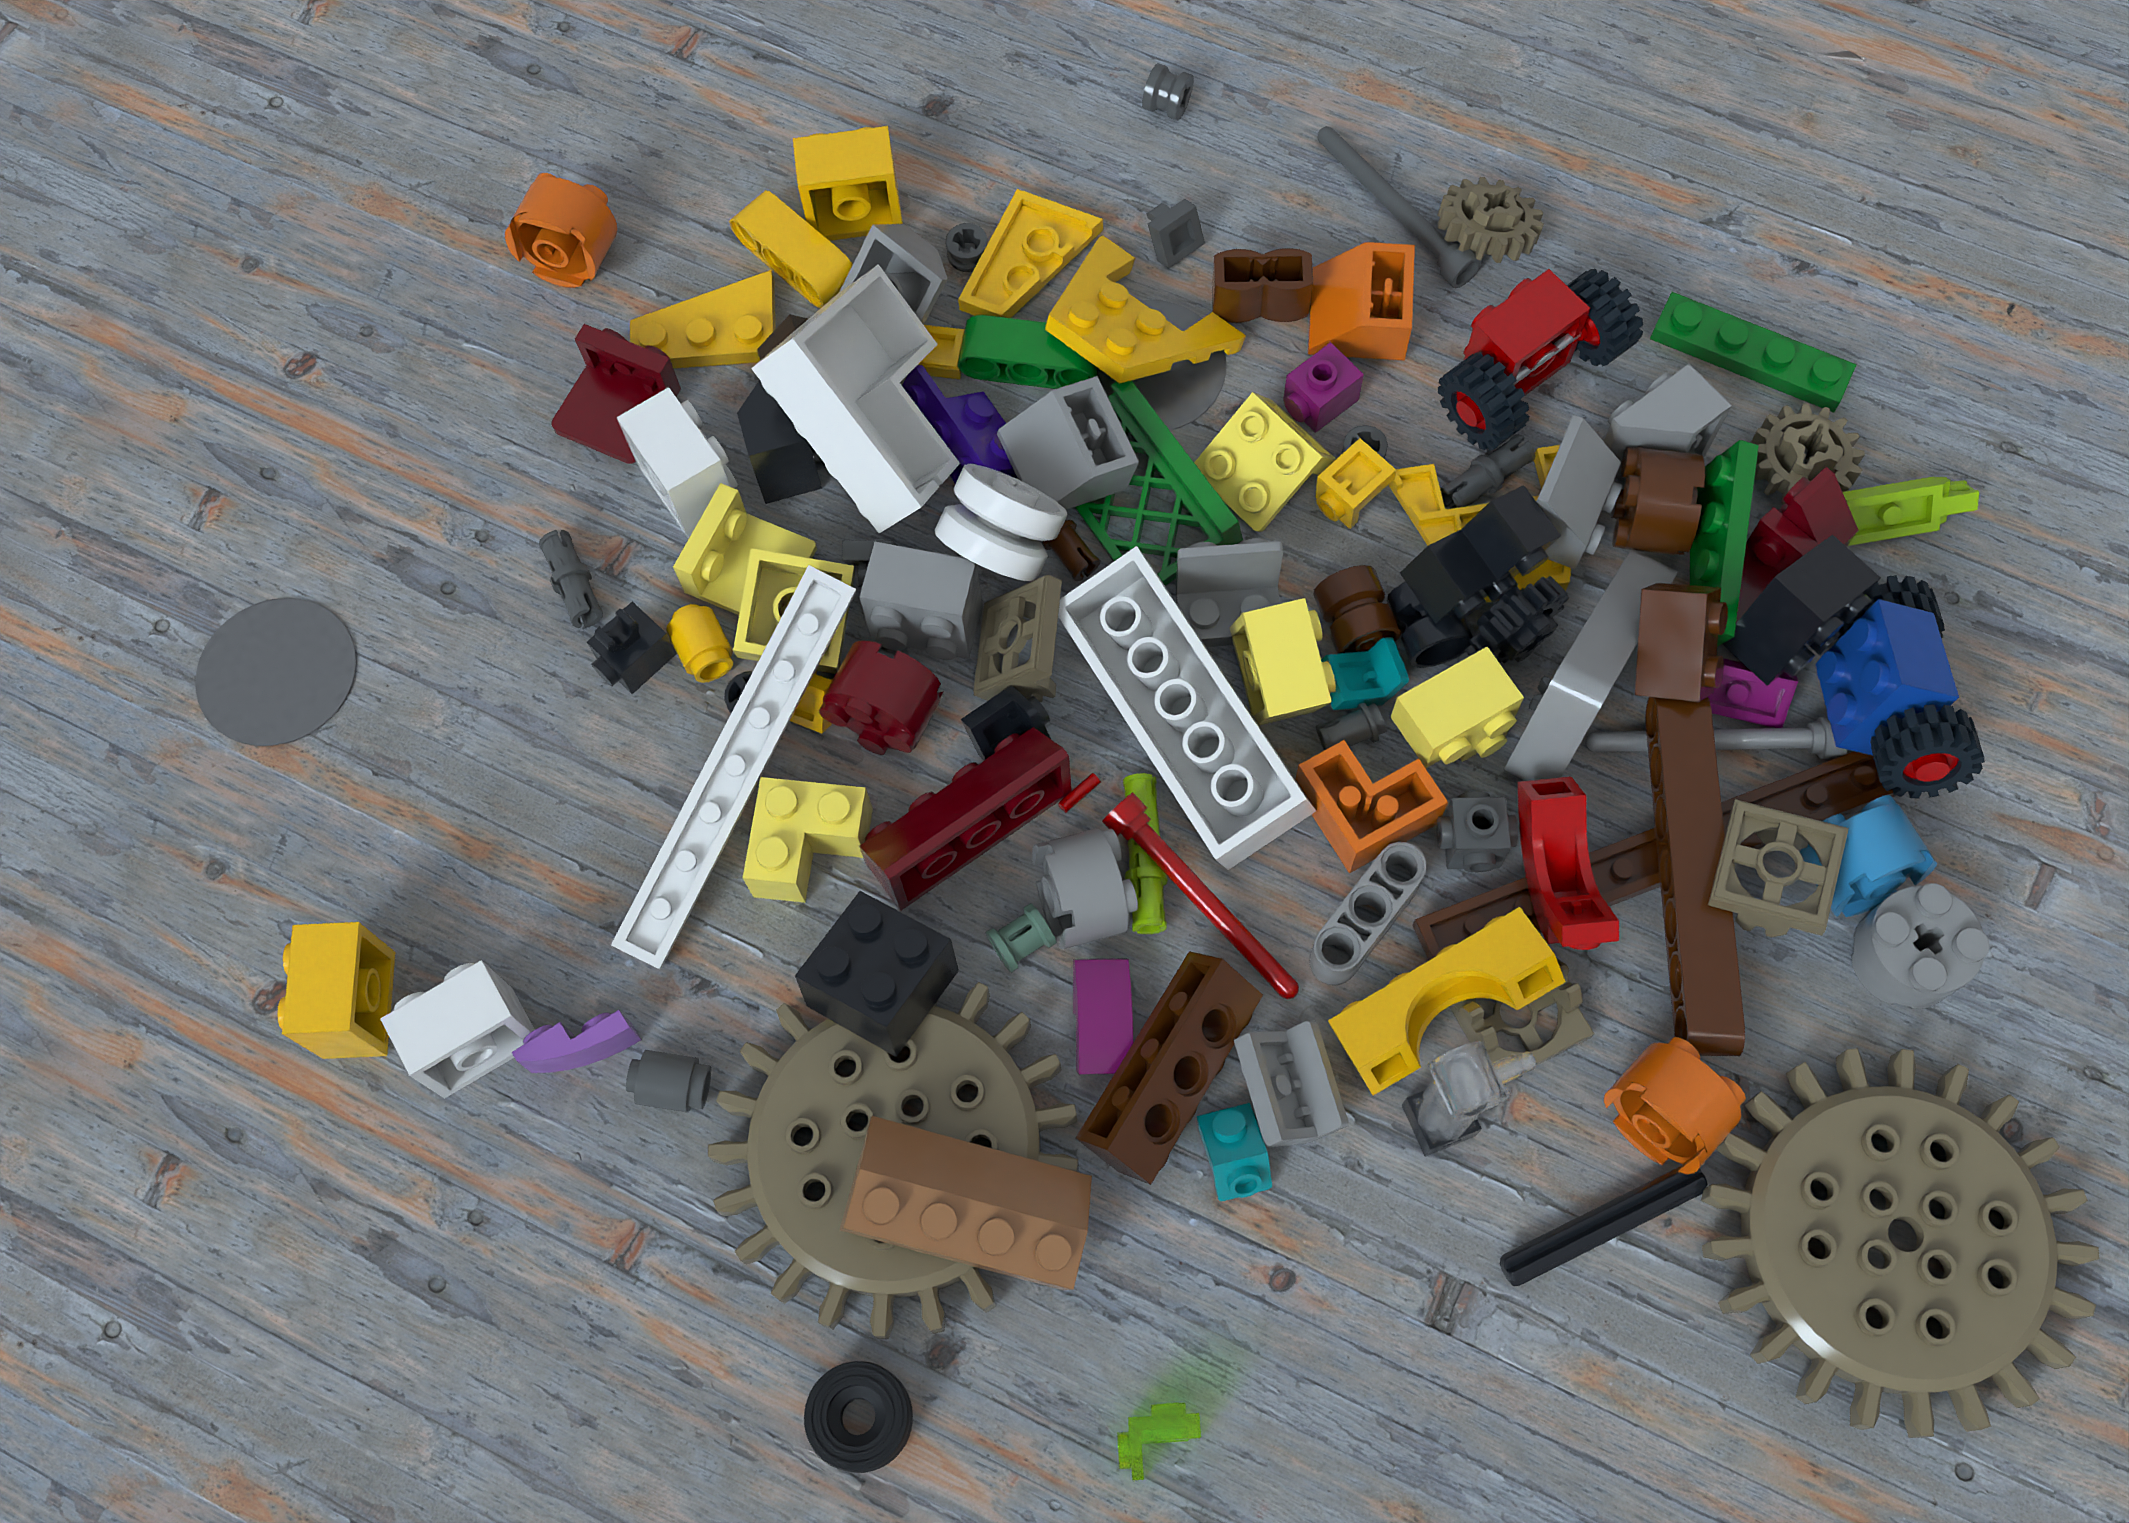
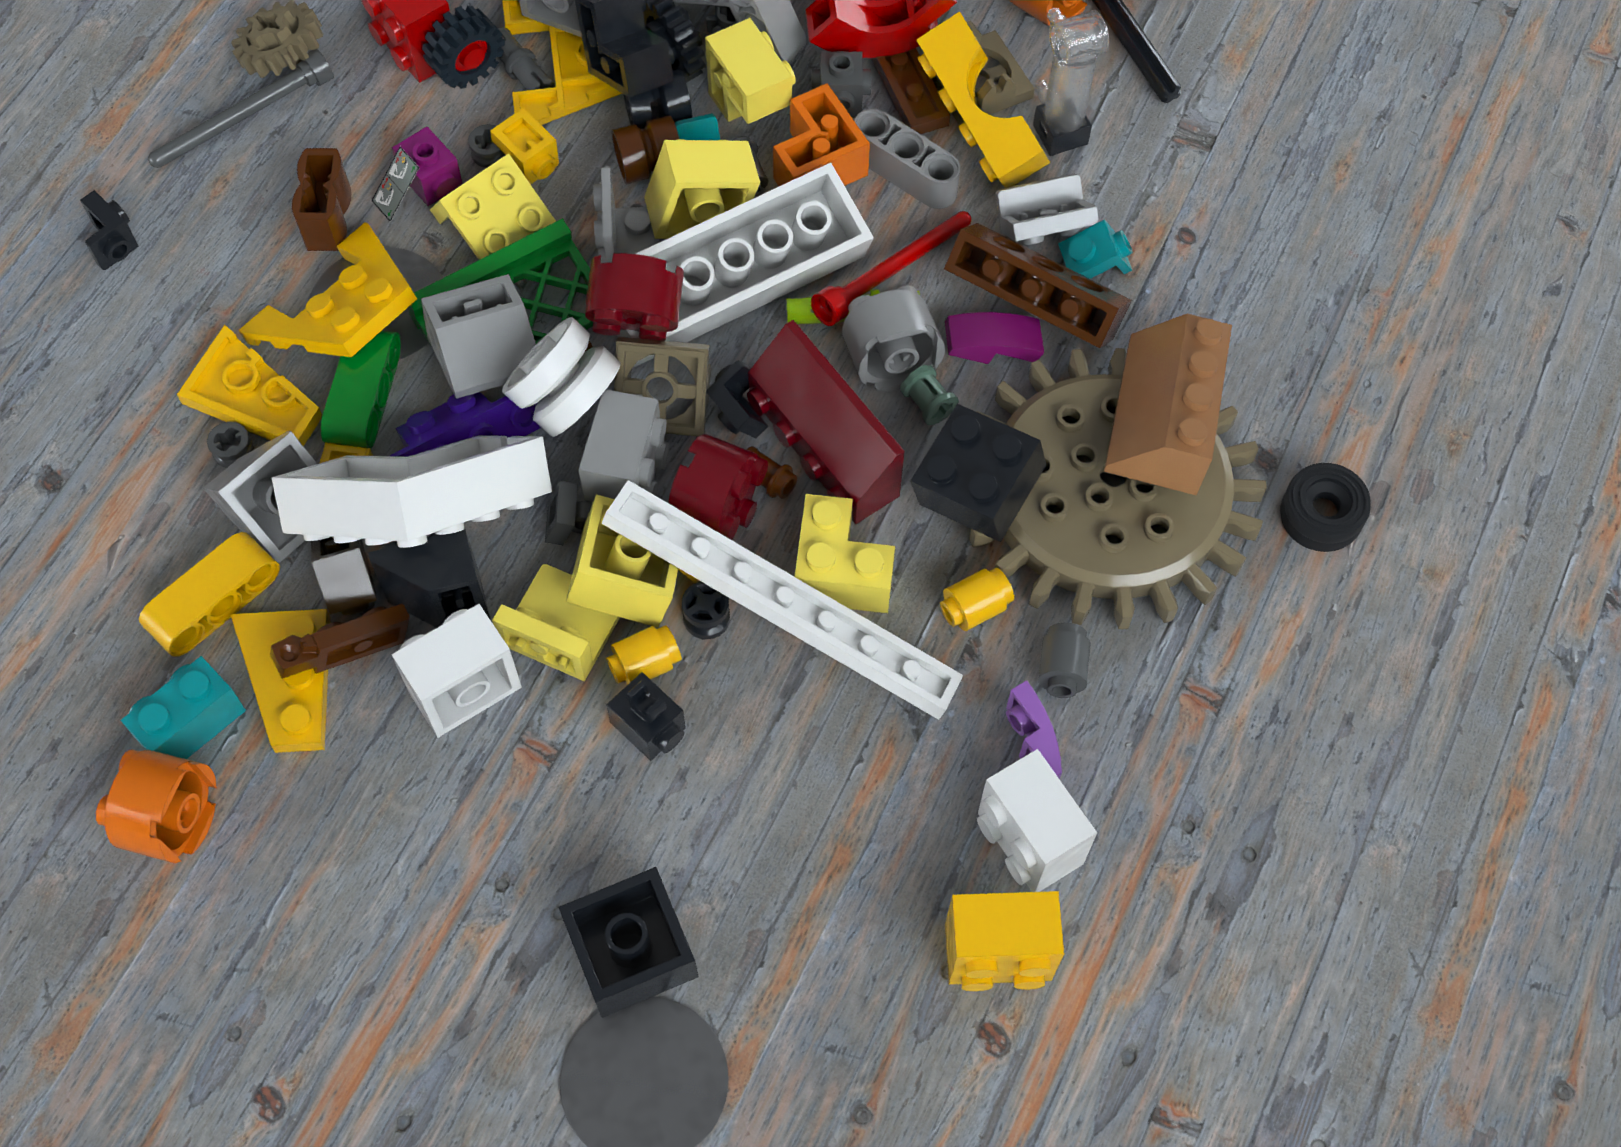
camera: 95 degrees left, 5 degrees down
(386, 638) = (629, 942): none -> black brick
(570, 579) = (564, 782): dark grey pin -> none
(613, 382) = (362, 750): dark red bracket -> none
(662, 242) = (184, 711): none -> teal brick
(717, 351) = (341, 642): none -> reddish brown hinge
(749, 984) = (976, 598): none -> yellow brick
(847, 181) = (150, 526): yellow brick -> none
(918, 765) = (779, 479): none -> reddish brown pin
(1082, 577) = (634, 295): none -> dark red brick
(1165, 1425) = (1312, 311): clear neon green bracket -> none
(1167, 91) = (86, 272): dark grey wheel -> none
(1175, 231) = (244, 273): dark grey tile -> none
(1224, 106) = (114, 236): none -> black bracket
(1292, 356) = (395, 183): none -> light grey sticker
(1364, 302) = (356, 119): orange slope -> none

